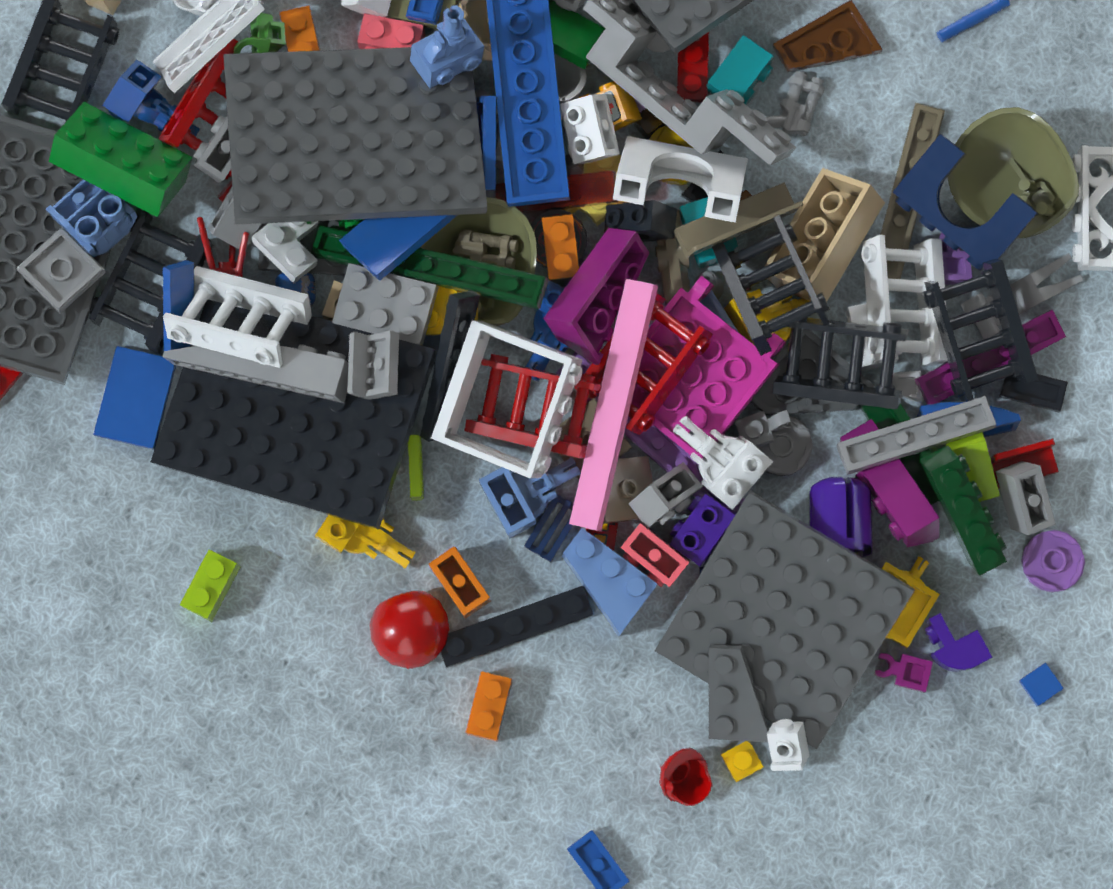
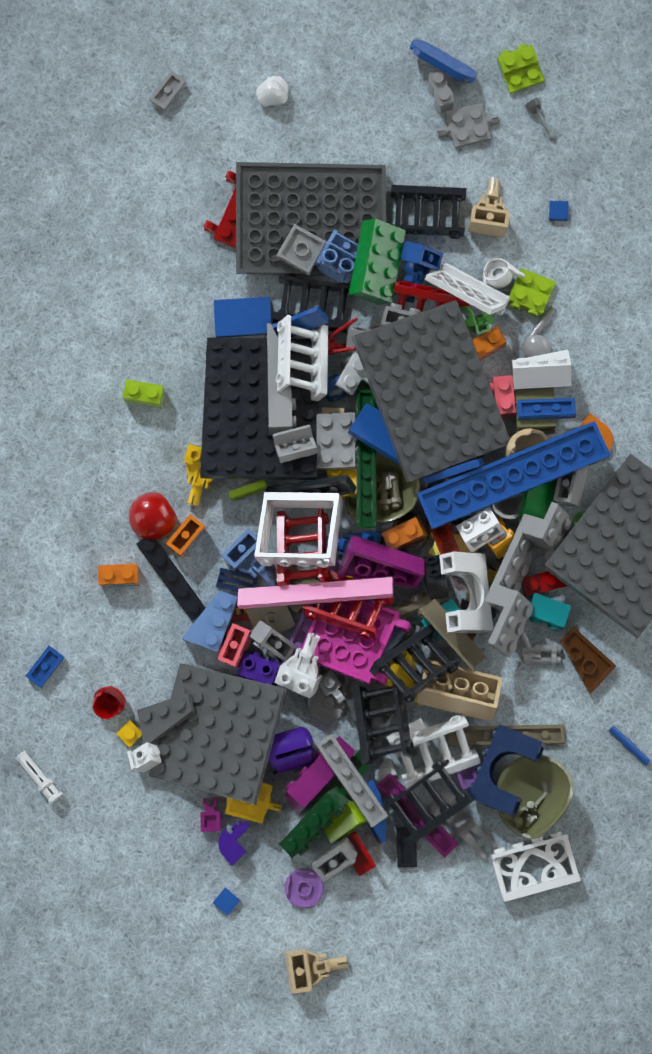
camera: 75 degrees right, 0 degrees up
(447, 50) = (499, 430): medium blue brick -> none

